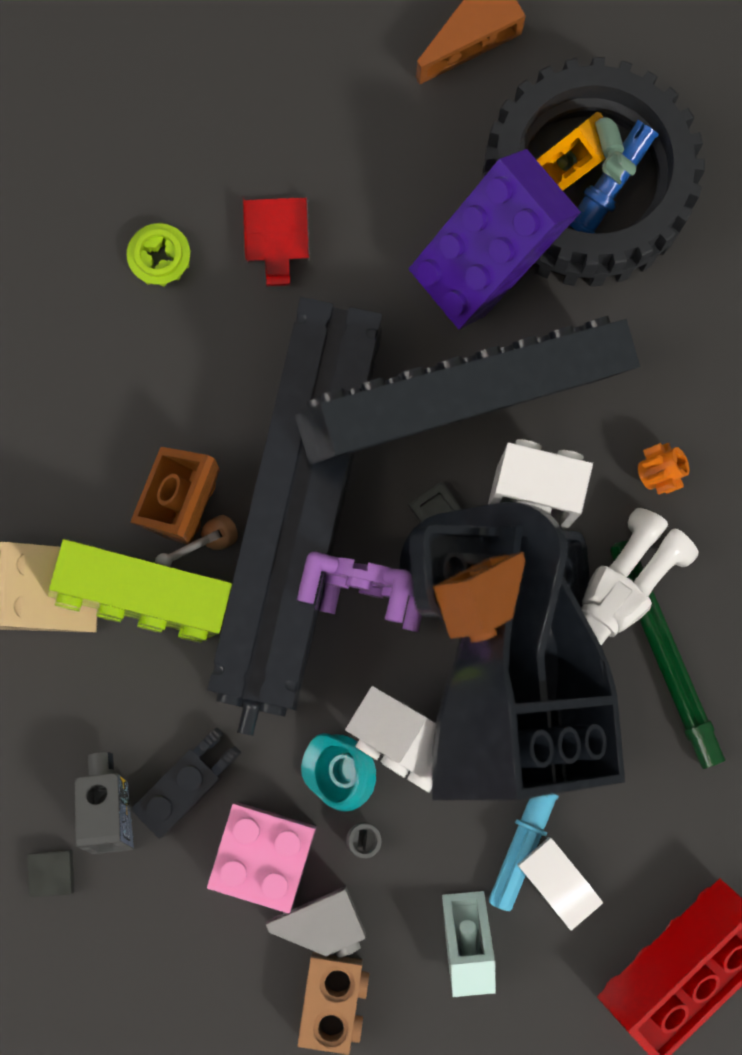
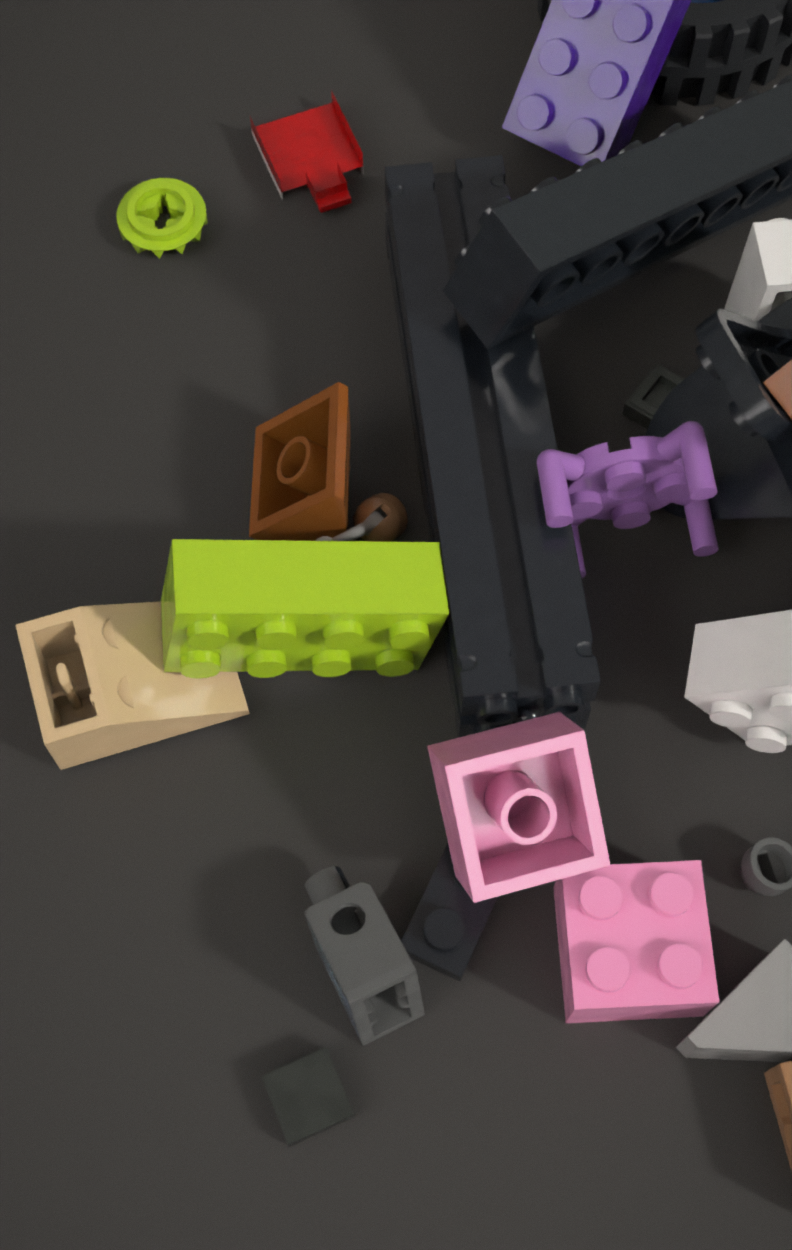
camera: 20 degrees left, 15 degrees down
(215, 763) = (519, 805): none -> bright pink brick
(338, 771) = (691, 778): teal hat -> none

